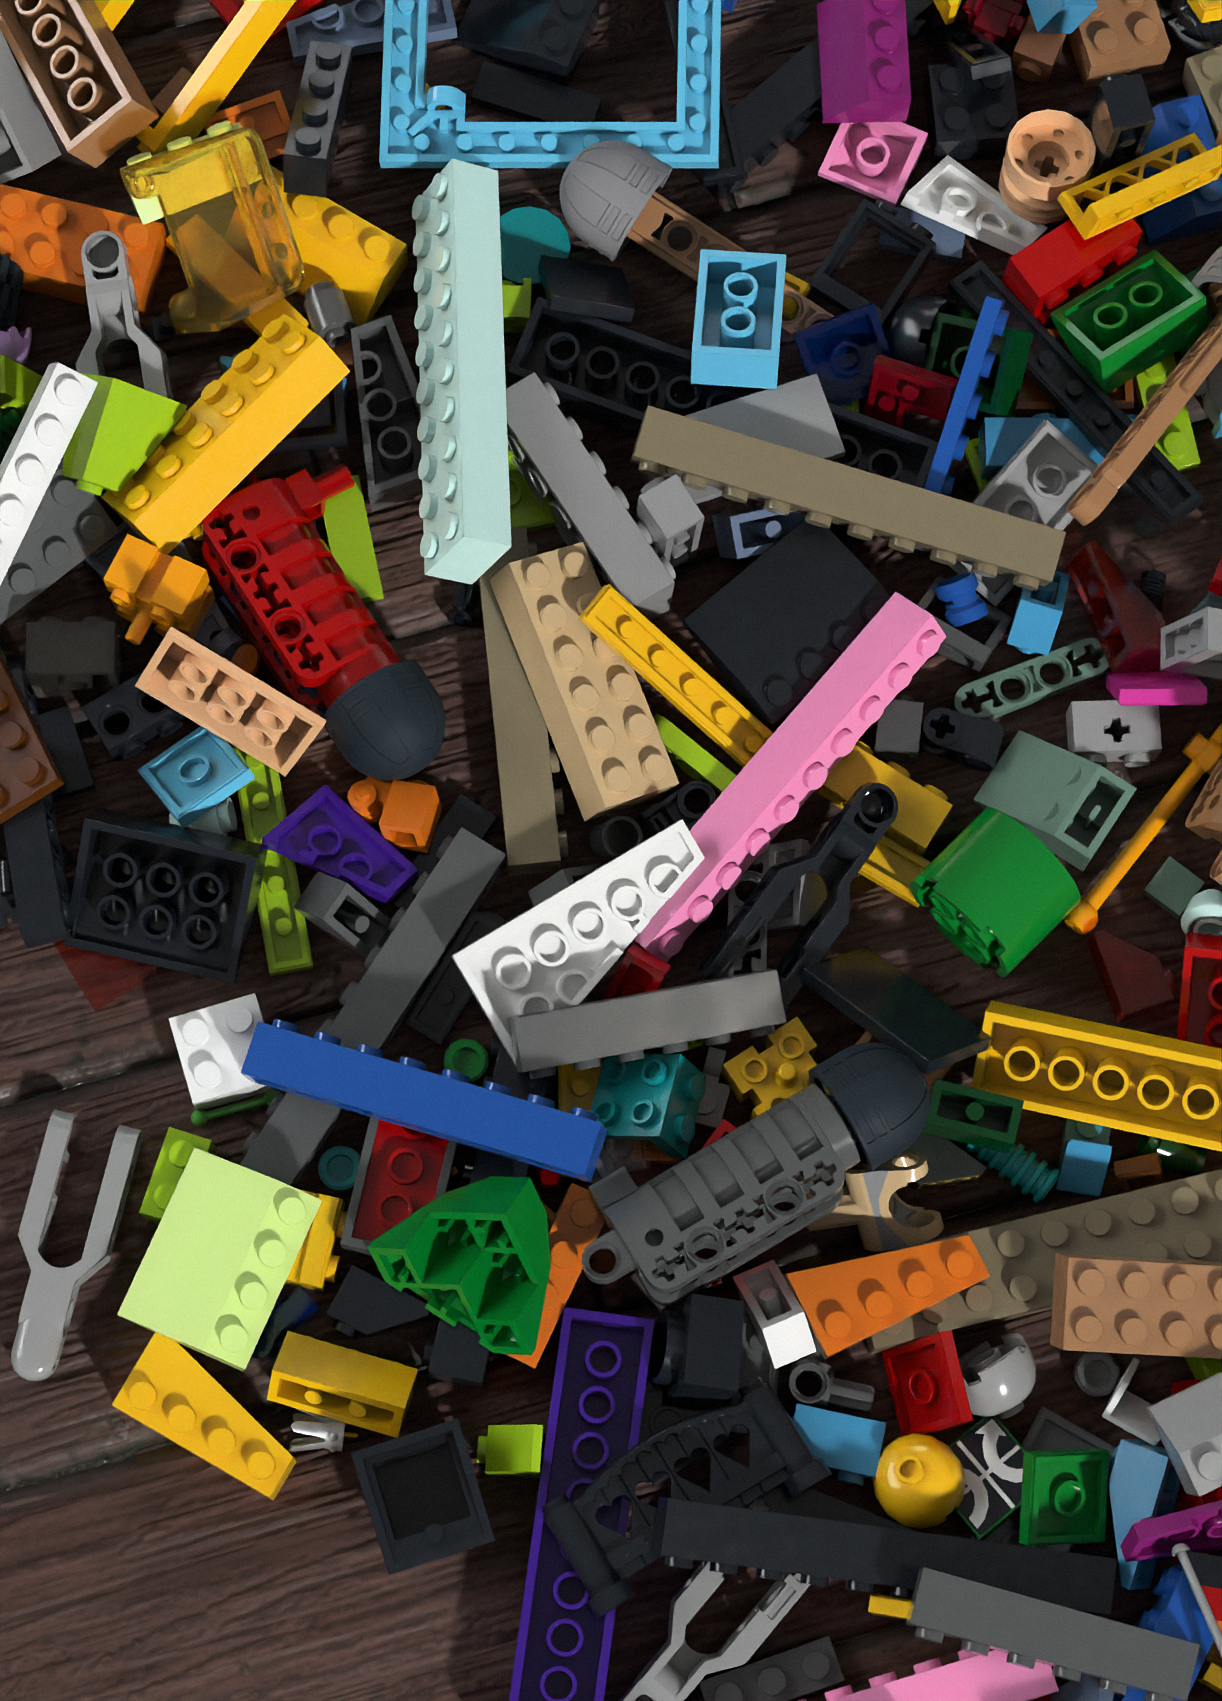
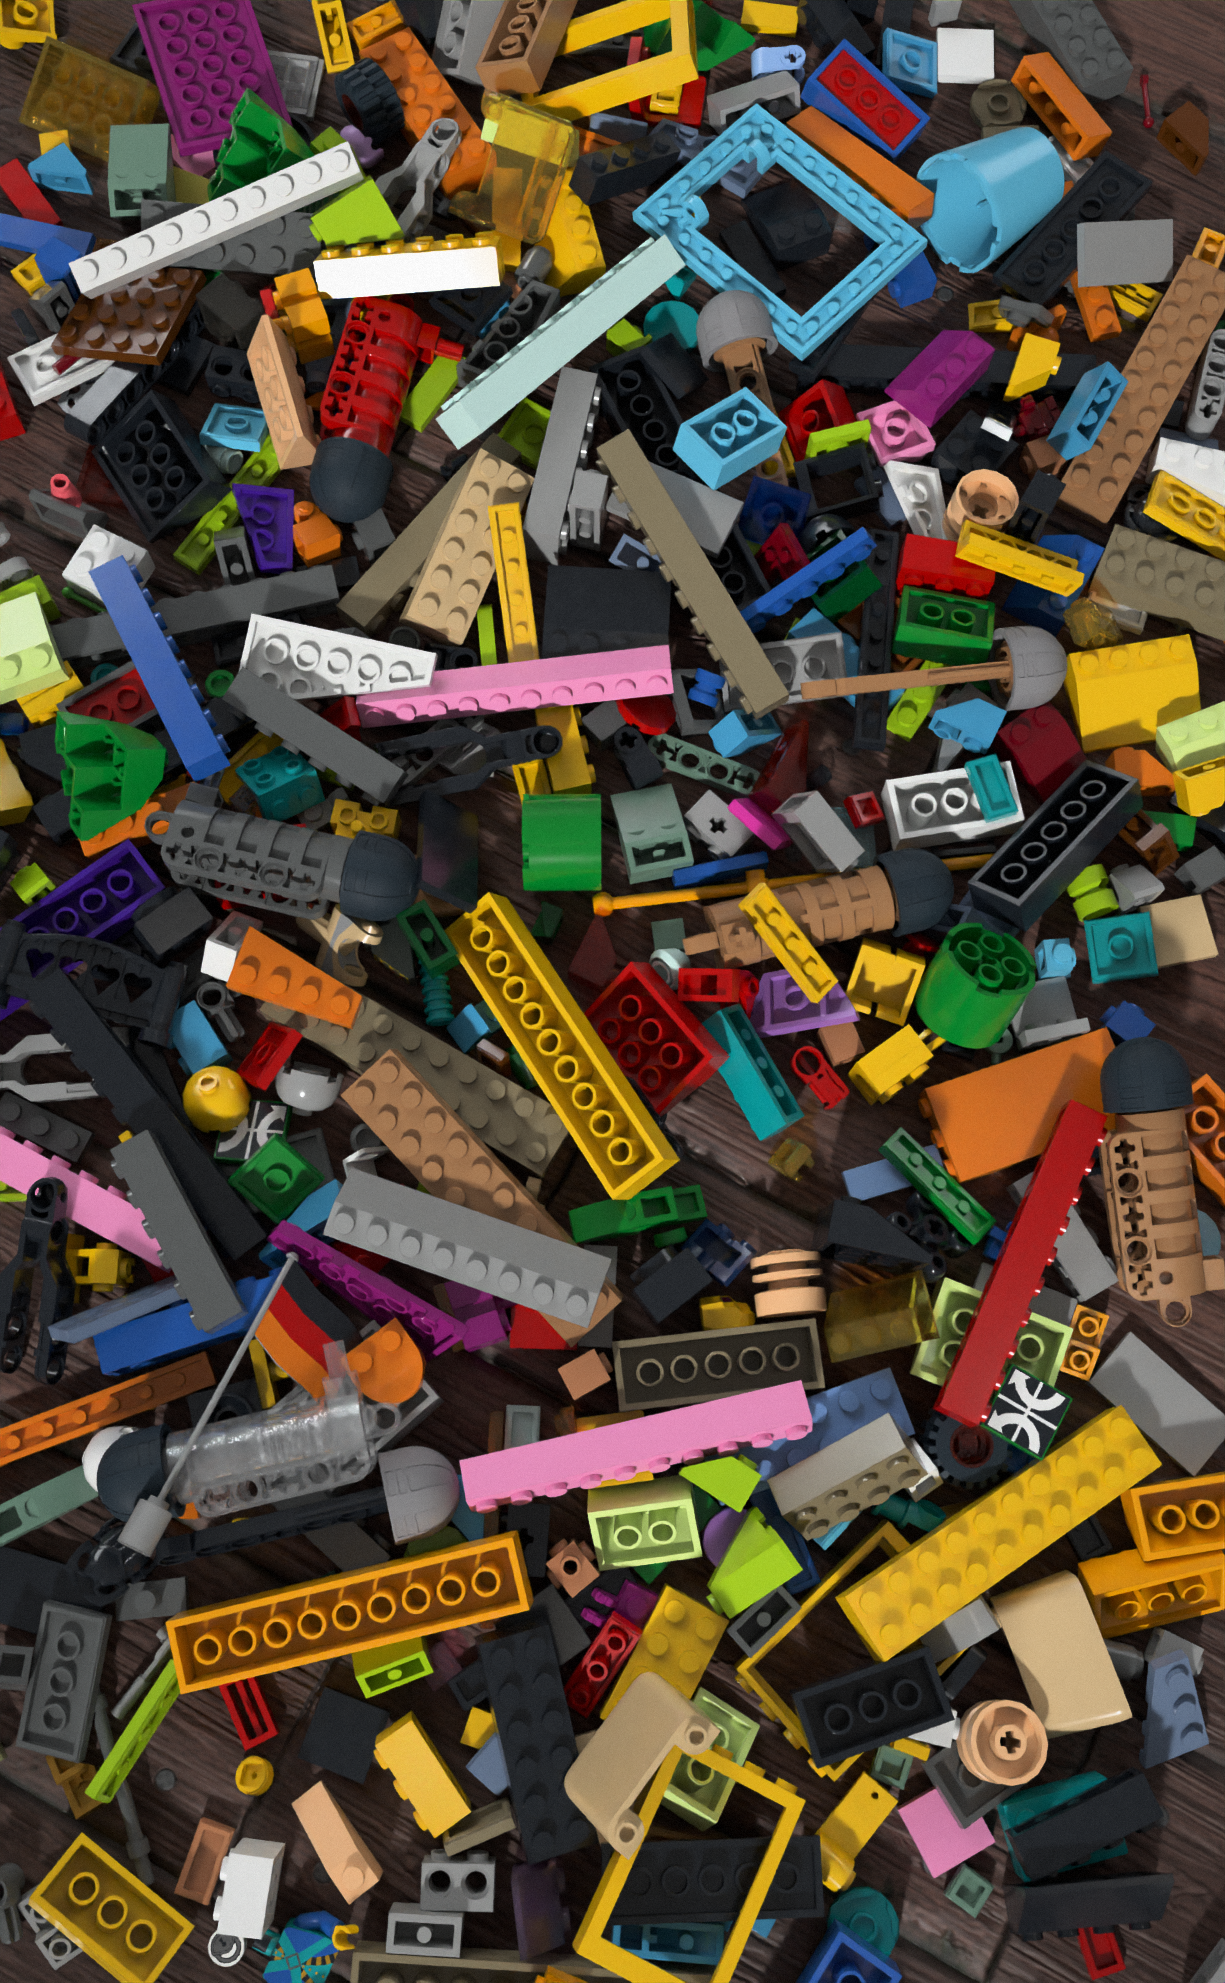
camera: 45 degrees right, 0 degrees up
(96, 603) = (268, 301): none -> red tile
(104, 1027) = (64, 490): none -> coral cone
(115, 1032) = (64, 515): none -> dark grey tile
(263, 76) = (617, 127): none -> sand blue slope
(462, 756) = (373, 535): none -> dark grey brick
(785, 213) = (815, 410): none -> red slope
(835, 221) = (838, 438): none -> lime tile
(935, 682) = (650, 713): none -> red tile
(1048, 987) = (547, 923): none -> dark green slope
(1157, 773) = (718, 870): none -> blue tile

